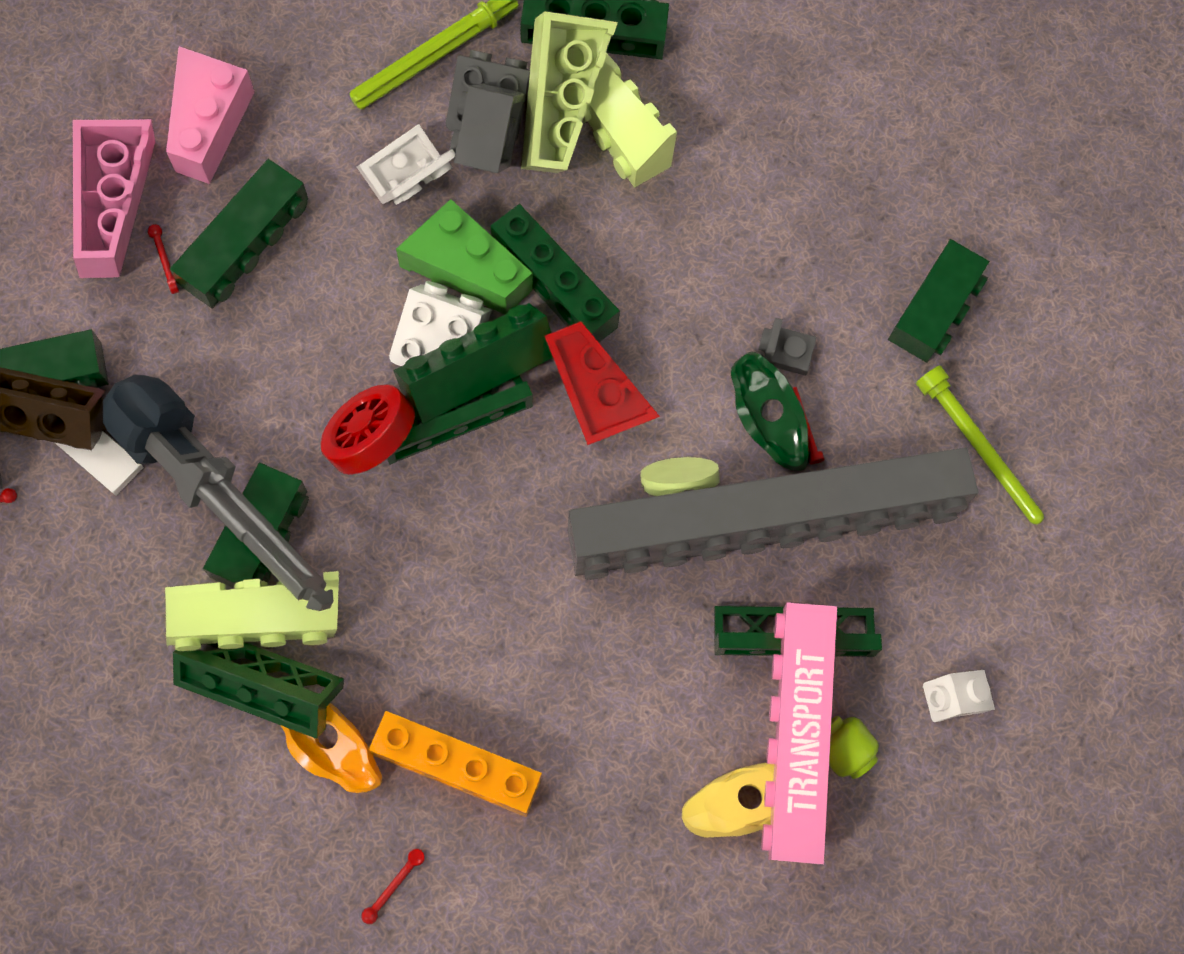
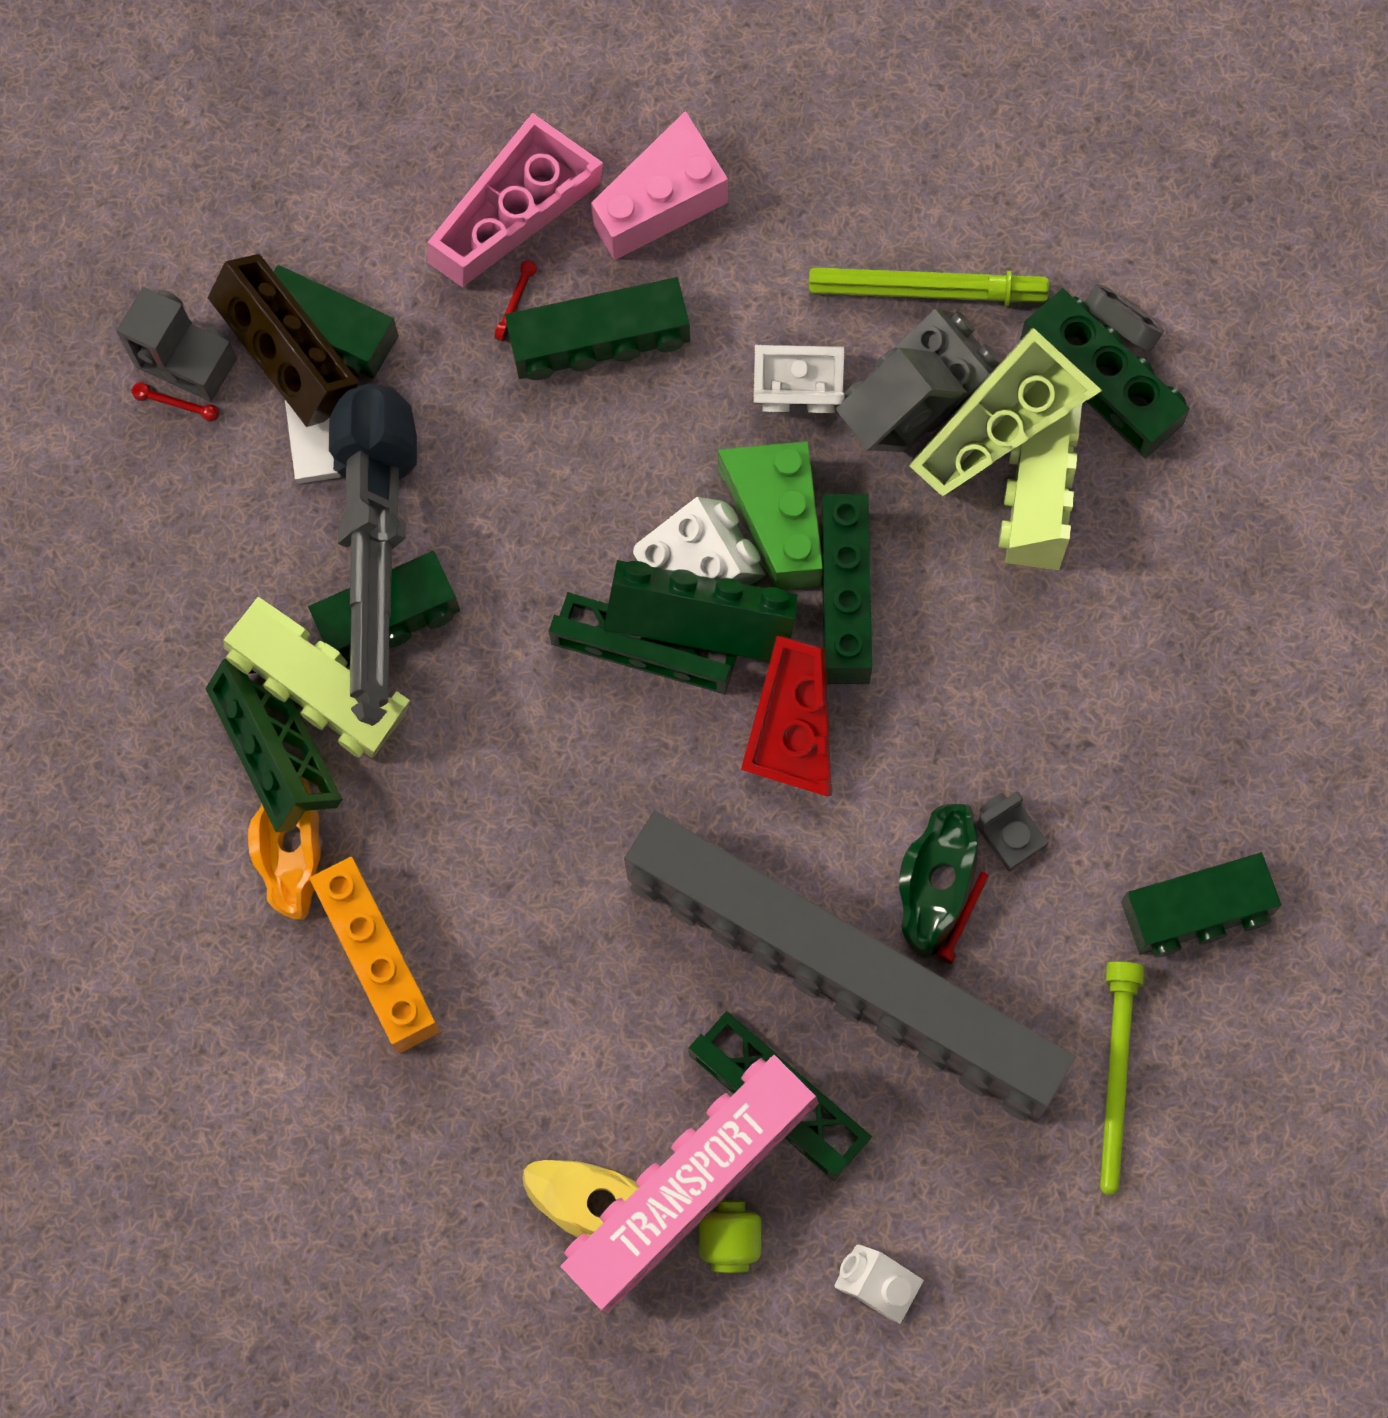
camera: 50 degrees right, 0 degrees up
(367, 429) = (550, 596): red wheel -> none
(370, 914) = (275, 1007): red hinge -> none
(679, 474) = (794, 864): yellowish green tile -> none

